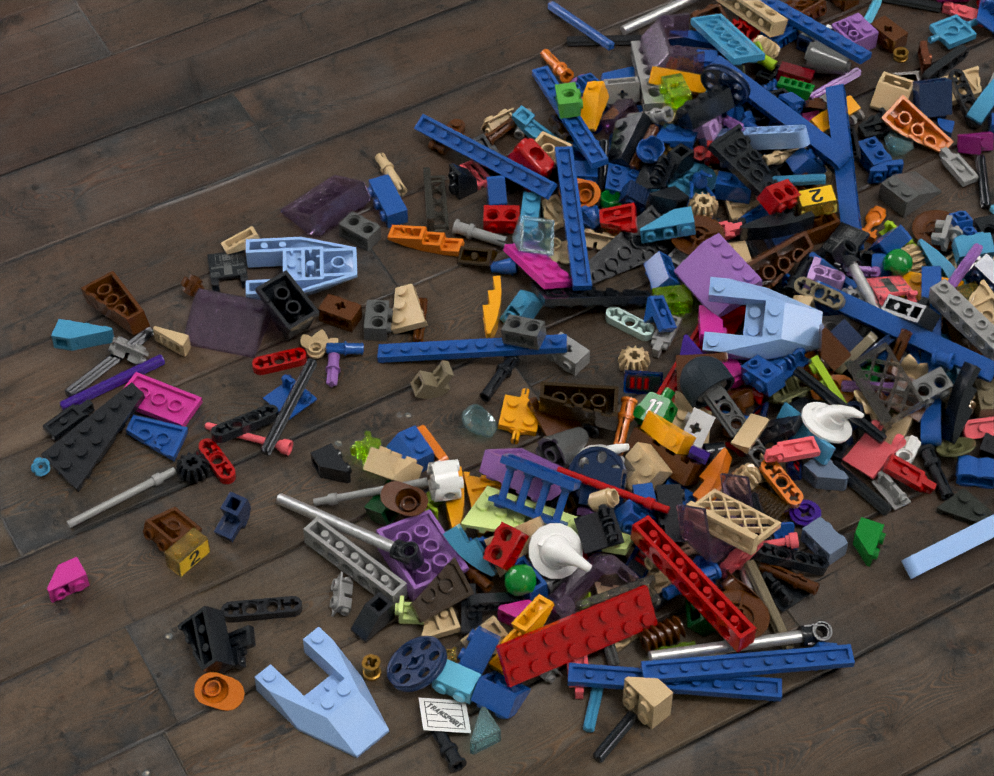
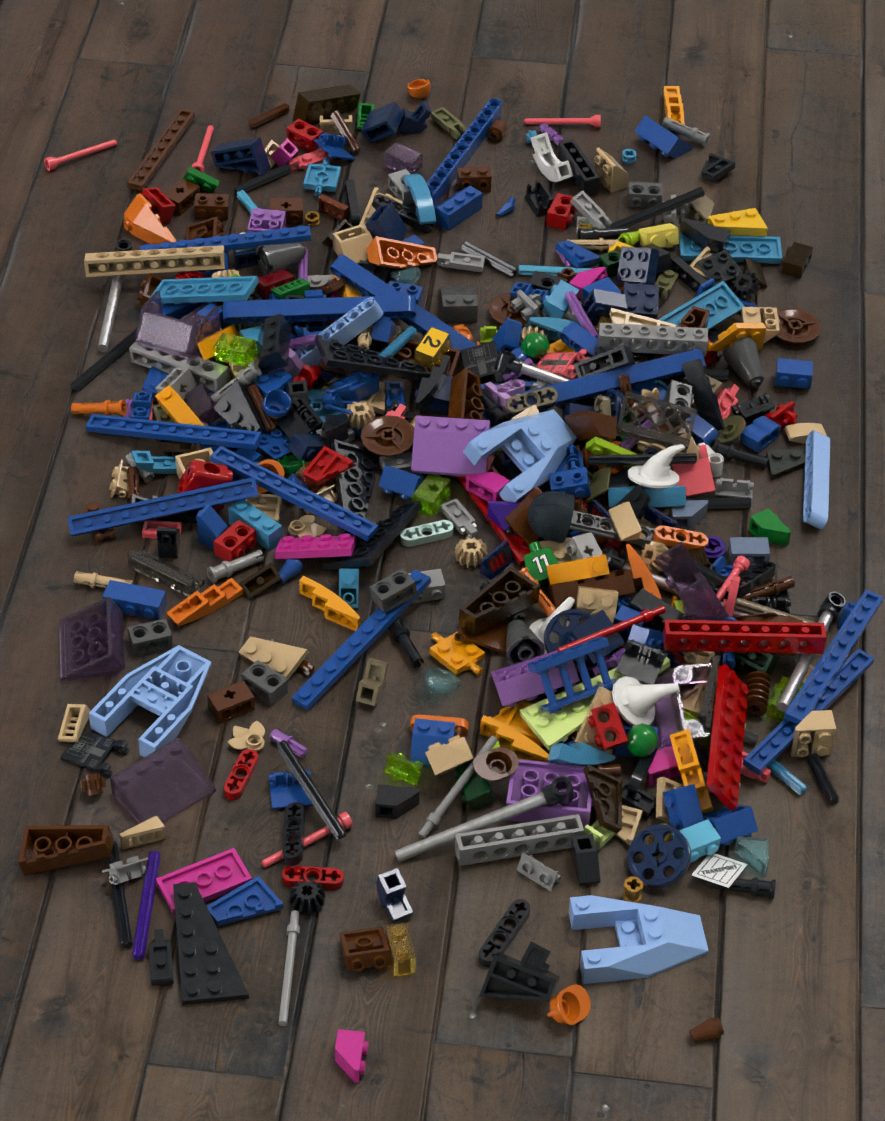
camera: 55 degrees left, 5 degrees down
(45, 466) = (198, 1008): dark azure plate -> none
(78, 335) = (64, 900): dark azure slope -> none
(287, 304) = (203, 725): black piece -> none
(345, 348) = (275, 721): blue axle -> none
(444, 480) = (503, 724): white brick -> none
(534, 235) = (288, 528): clear light blue slope -> none
(568, 100) = (162, 419): bright green brick -> none
(581, 25) = (71, 367): blue axle -> none
(606, 496) = (617, 641): tan brick -> none
(659, 313) = (443, 502): blue slope -> none
(671, 225) = (369, 438): dark azure slope -> none
(699, 454) = (618, 563): dark purple slope -> none
(727, 528) = (722, 583): tan fence -> none
(731, 81) = (260, 307): dark blue wedge -> none
(779, 197) = (414, 361): red brick -> none
(792, 450) = (666, 508): coral hinge -> none
(879, 172) = (427, 296): blue slope -> none
(908, 474) = (732, 468): red hinge -> none
(942, 358) = (667, 373): blue bush -> none
(975, 142) = (450, 237): magenta slope -> none

